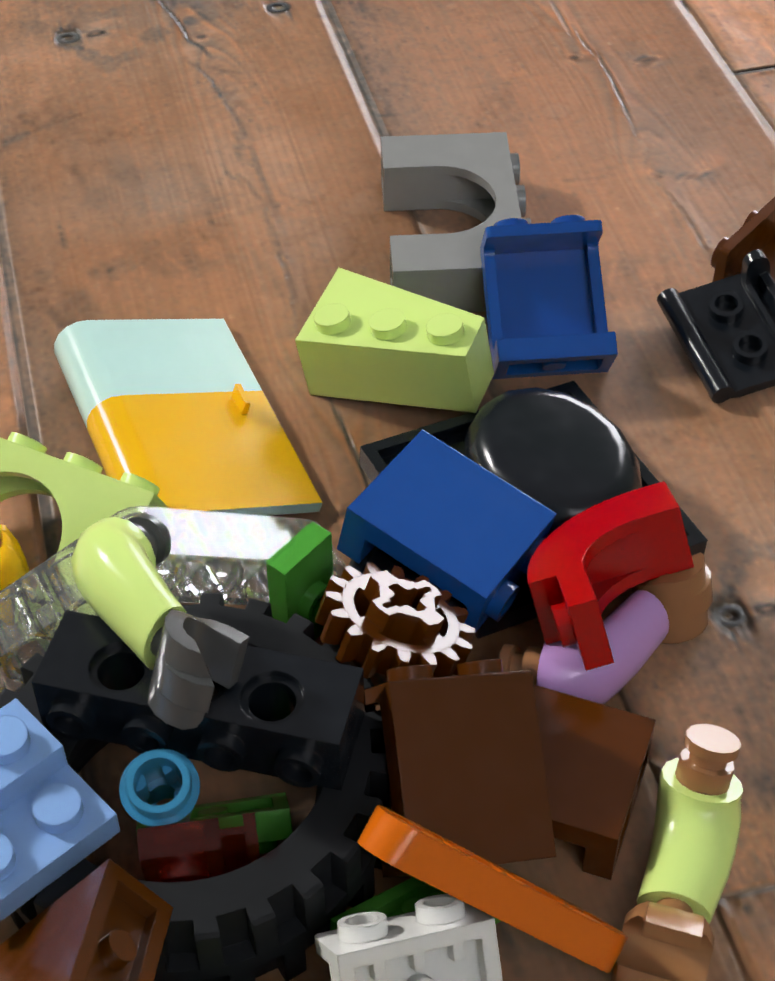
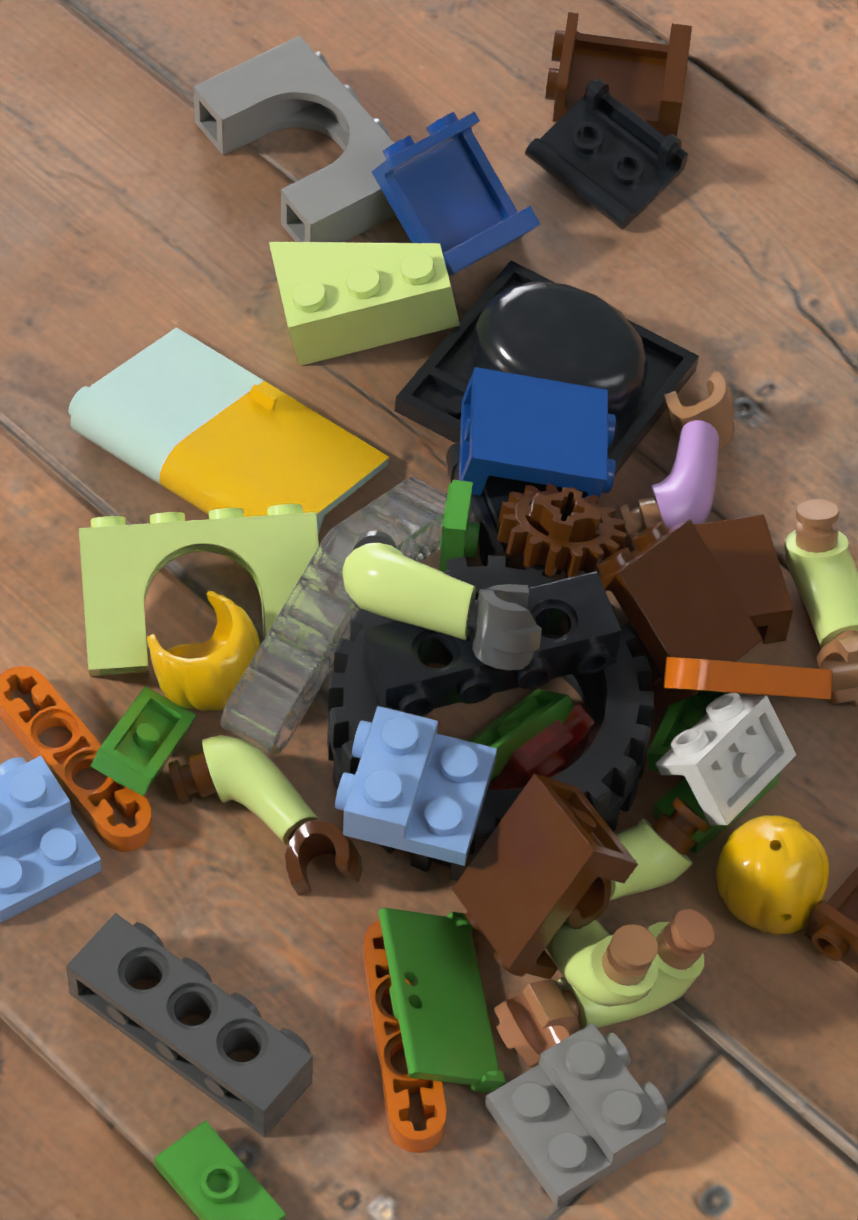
camera: 35 degrees left, 10 degrees up
(156, 777) = (506, 720): dark azure cone -> none
(599, 558) = (651, 408): red arch -> none

